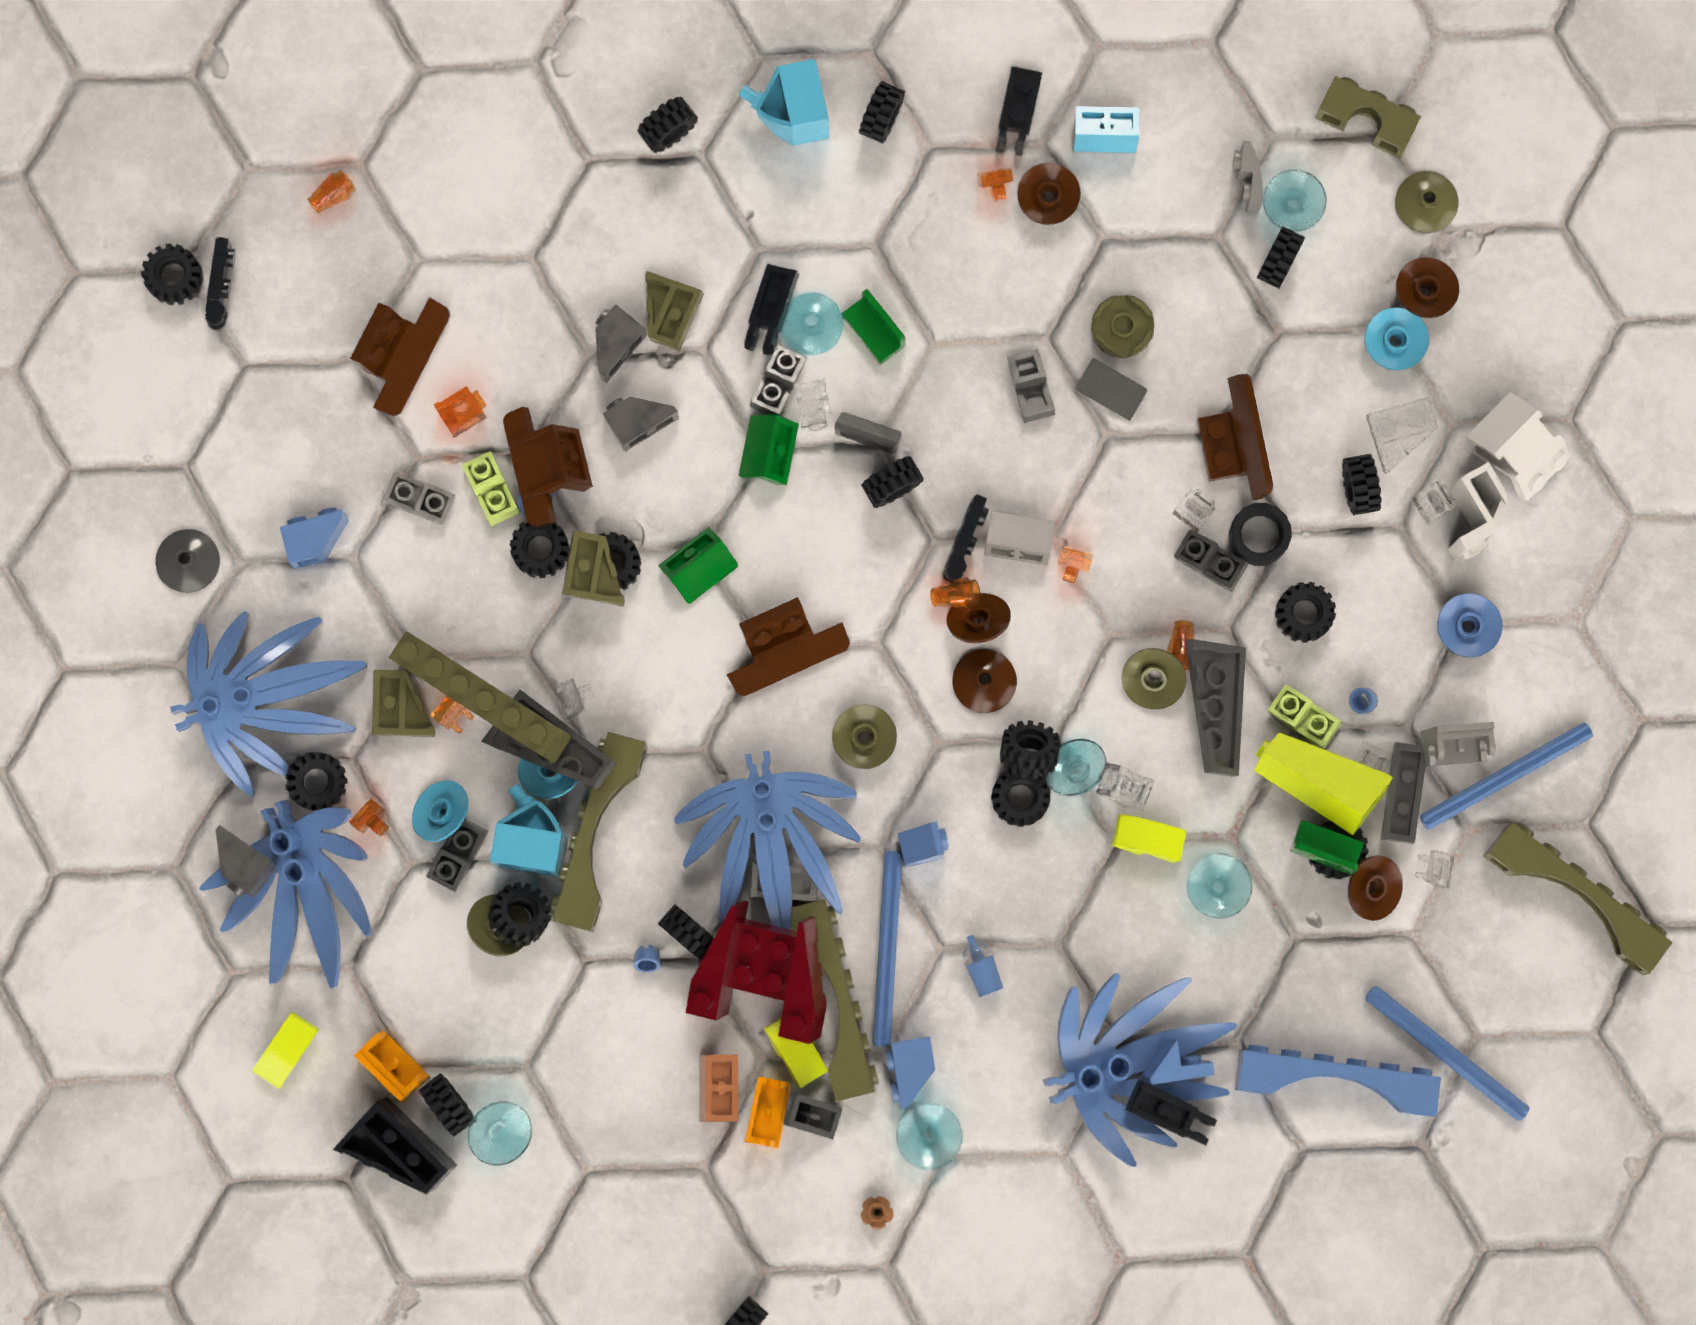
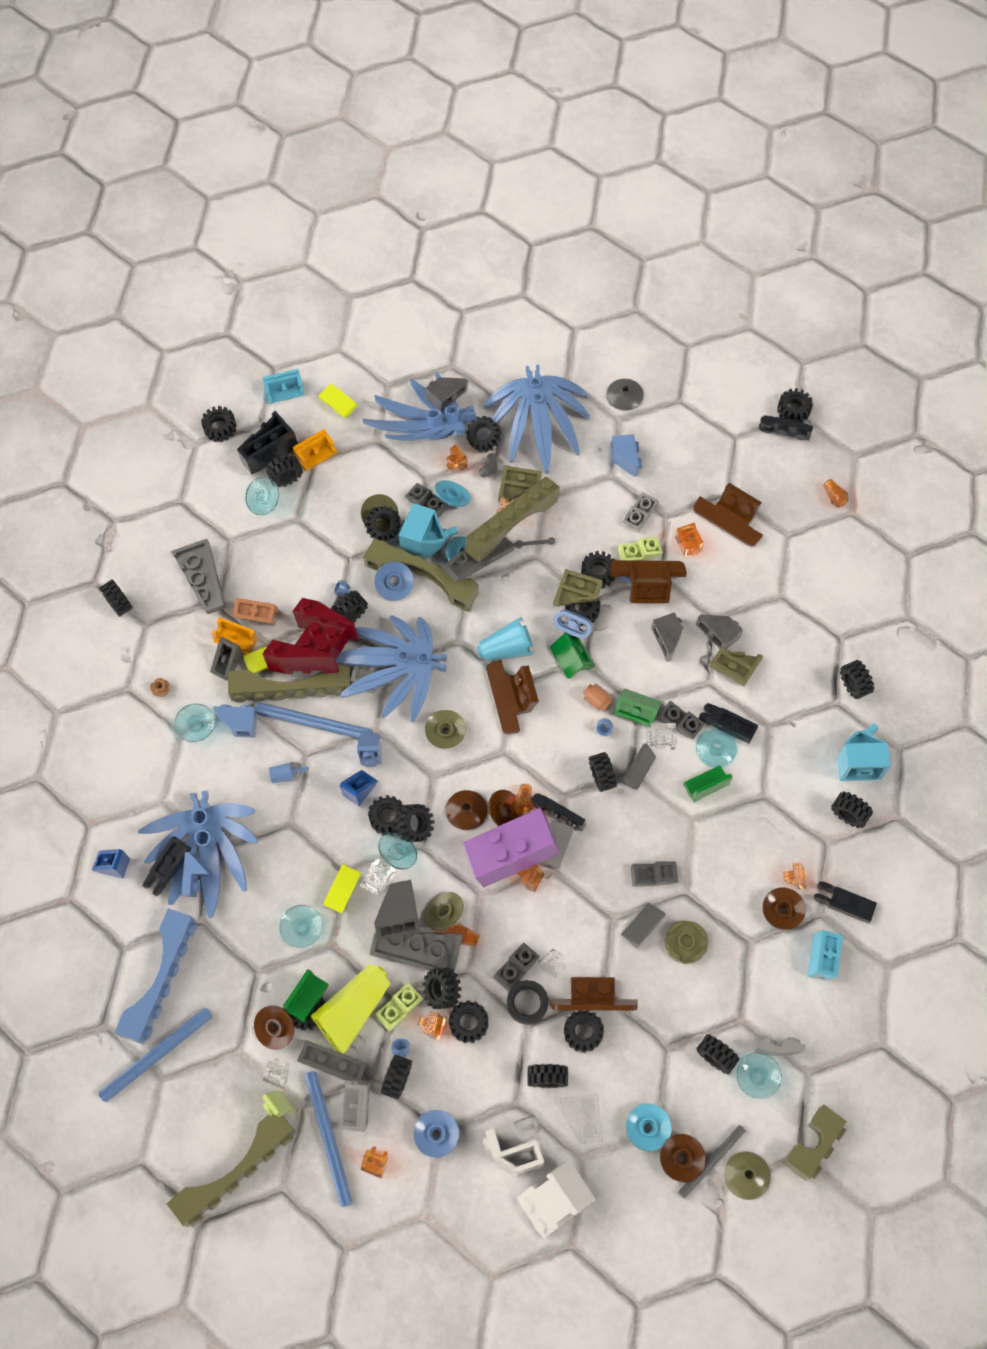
camera: 100 degrees right, 15 degrees down
(270, 1153) = (283, 386): none -> medium azure hinge
(346, 1256) = (216, 415): none -> black tyre
(374, 758) = (490, 468): none -> dark grey arm
(510, 685) = (519, 544): none -> dark grey hinge
(628, 865) = (402, 586): none -> medium blue dish
(651, 569) = (573, 625): none -> medium blue plate
(653, 1205) = (201, 573): none -> wing
(701, 667) = (507, 642): none -> medium azure cone
(765, 512) = (598, 697): none -> nougat brick
(812, 494) = (602, 729): none -> medium blue hinge
(982, 850) = (358, 787): none -> blue slope
(1043, 593) = (511, 847): none -> medium lavender brick
(1172, 741) = (398, 912): none -> dark grey slope
(1181, 1206) = (111, 862): none -> blue slope
(1262, 647) = (448, 995): none -> black tyre
(1302, 443) = (583, 1044): none -> black tyre
(1321, 661) = (432, 1025): none -> clear orange tile
(1408, 694) = (396, 1077): none -> black tyre
(1415, 246) = (713, 1160): none -> dark grey bar
(1484, 851) = (277, 1104): none -> yellowish green slope
(1527, 703) = (374, 1163): none -> clear orange tile

